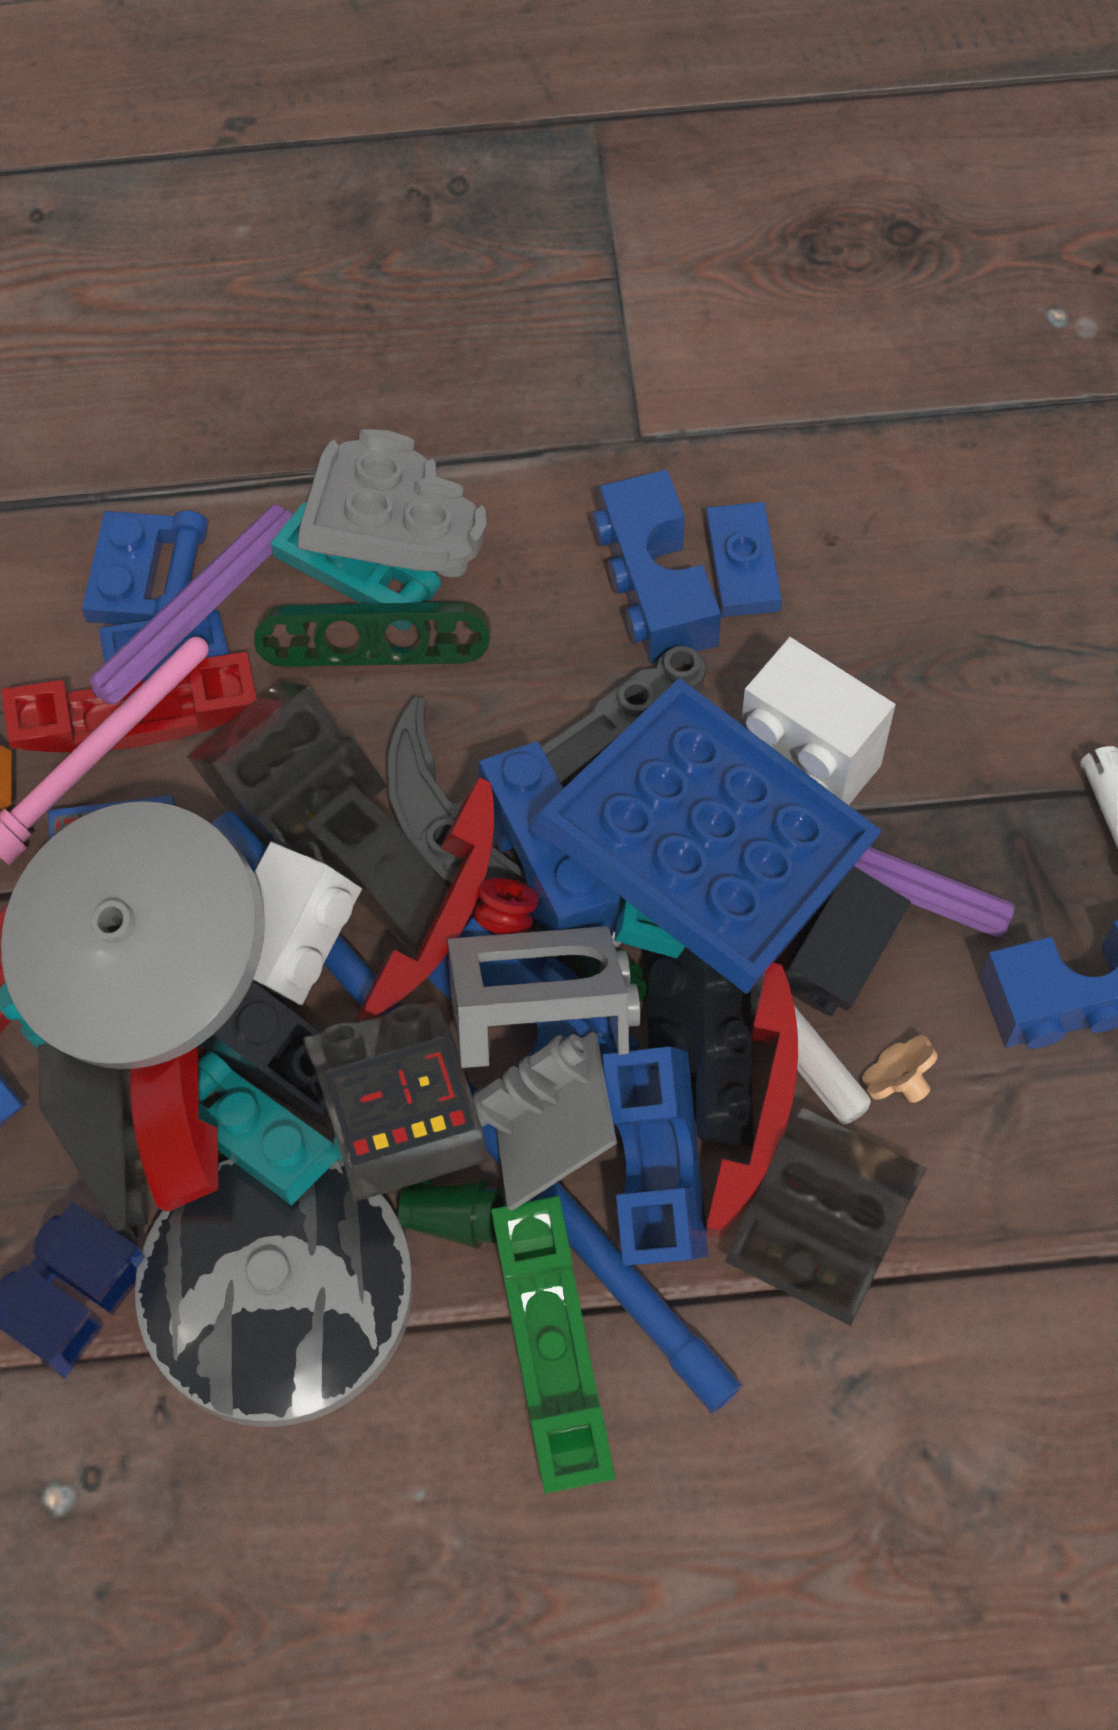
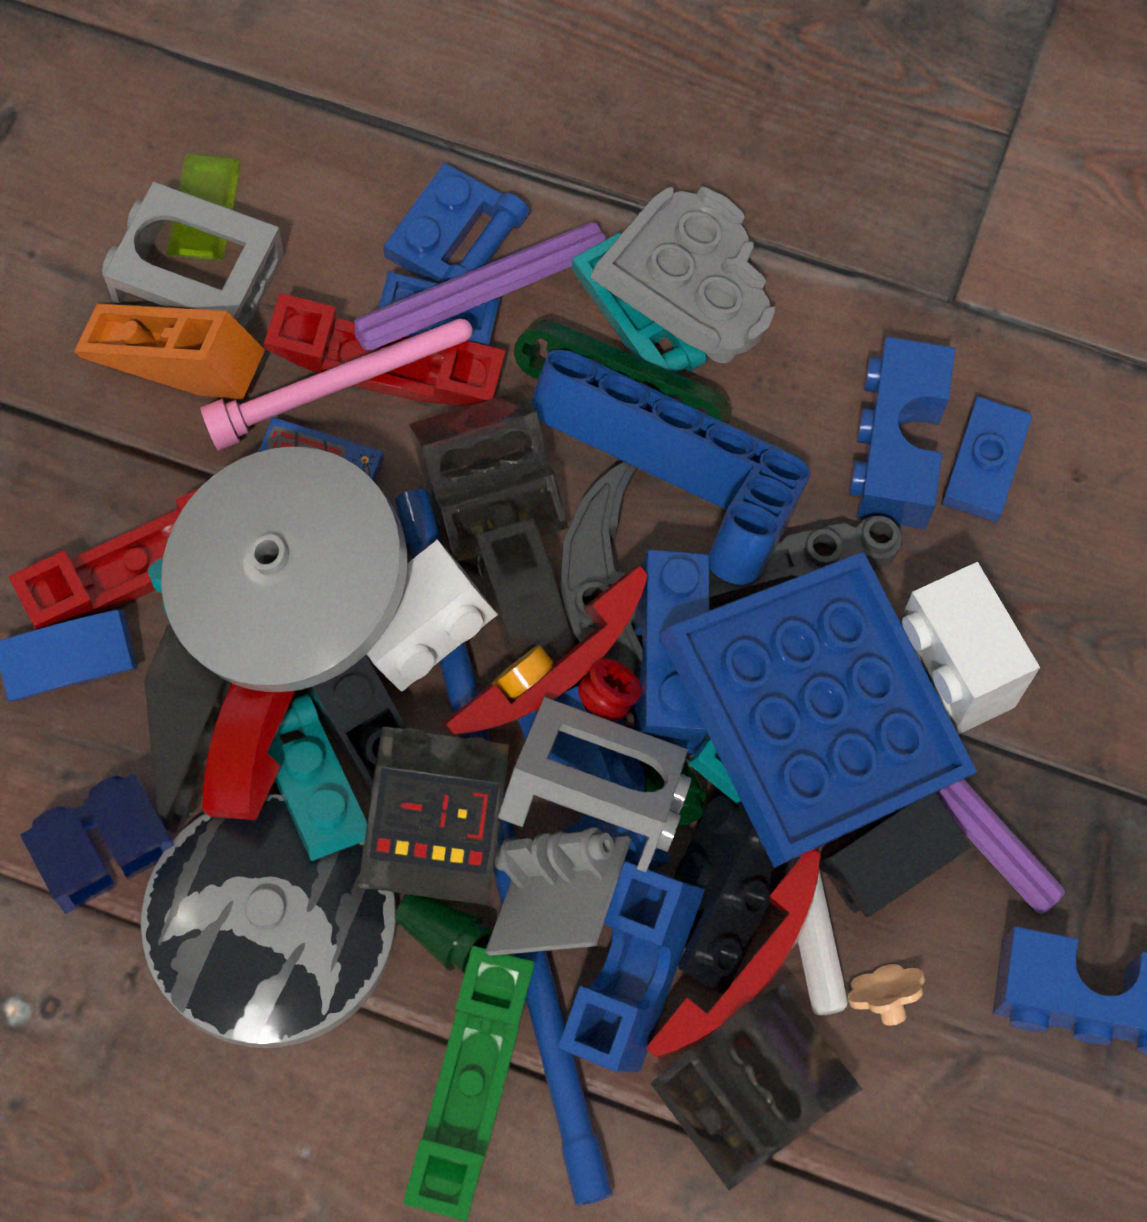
camera: 20 degrees right, 5 degrees up
(415, 929) = (523, 673): none -> light orange tile
(458, 666) = (683, 447): none -> blue beam

